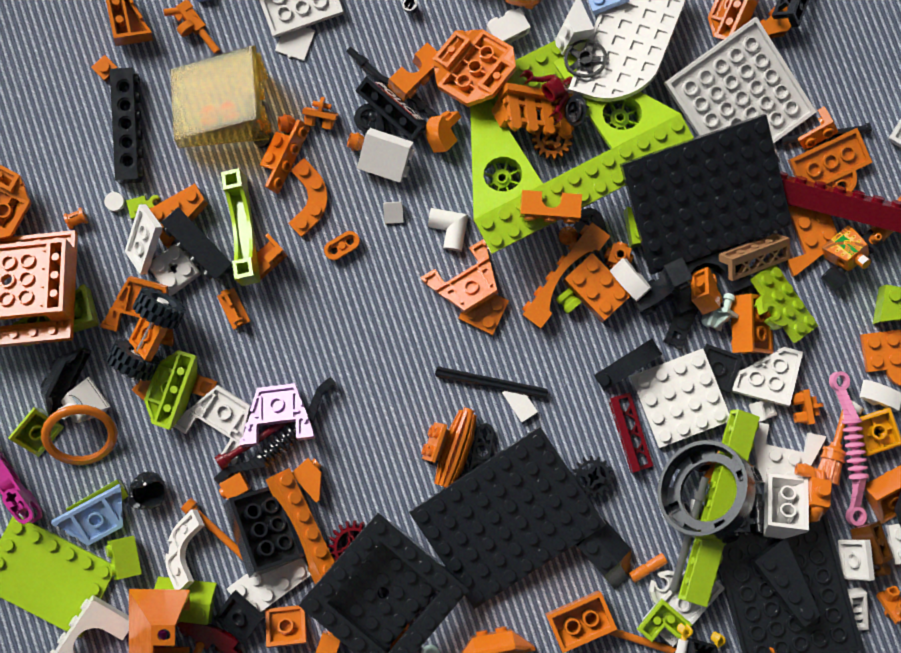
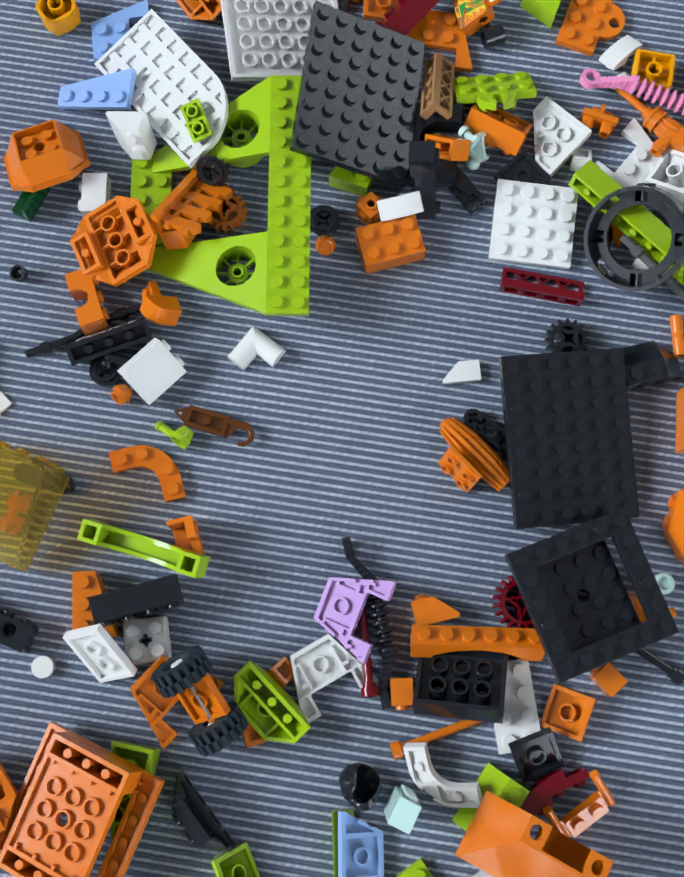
camera: 60 degrees left, 5 degrees down
(75, 218) = (37, 716): orange bush -> none
(79, 409) = (237, 821): orange wedge -> none
(84, 394) = (234, 805): white torso -> none
(123, 558) = (417, 847): lime brick -> none
(134, 203) = (59, 646): lime plate -> none
(142, 530) = (402, 808): none -> light aqua brick
(233, 308) = (219, 601): orange hinge -> none
(282, 155) = (92, 471): orange bracket -> none
(286, 123) = (64, 452): orange plate -> none
(312, 113) = (82, 407): orange hips -> none
(341, 245) = (217, 461): orange plate -> none
(347, 208) = (181, 437): none -> lime bar
(371, 227) = (214, 423): none -> reddish brown plate
(393, 212) = (211, 395): white slope -> none
(470, 286) = (326, 359): wing -> none
(486, 315) = (353, 359): orange plate -> none
(491, 382) = (428, 387): black axle -> none
(533, 207) = (286, 248): orange arch -> none
(552, 89) = (180, 180): dark red piece -> none
(568, 301) = (388, 276): lime wheel -> none
(585, 59) = (167, 135): black wheel -> none
(592, 240) = (381, 306): orange arch -> none
(608, 76) = (196, 120): none -> lime slope
(628, 364) = (479, 253): black arch -> none

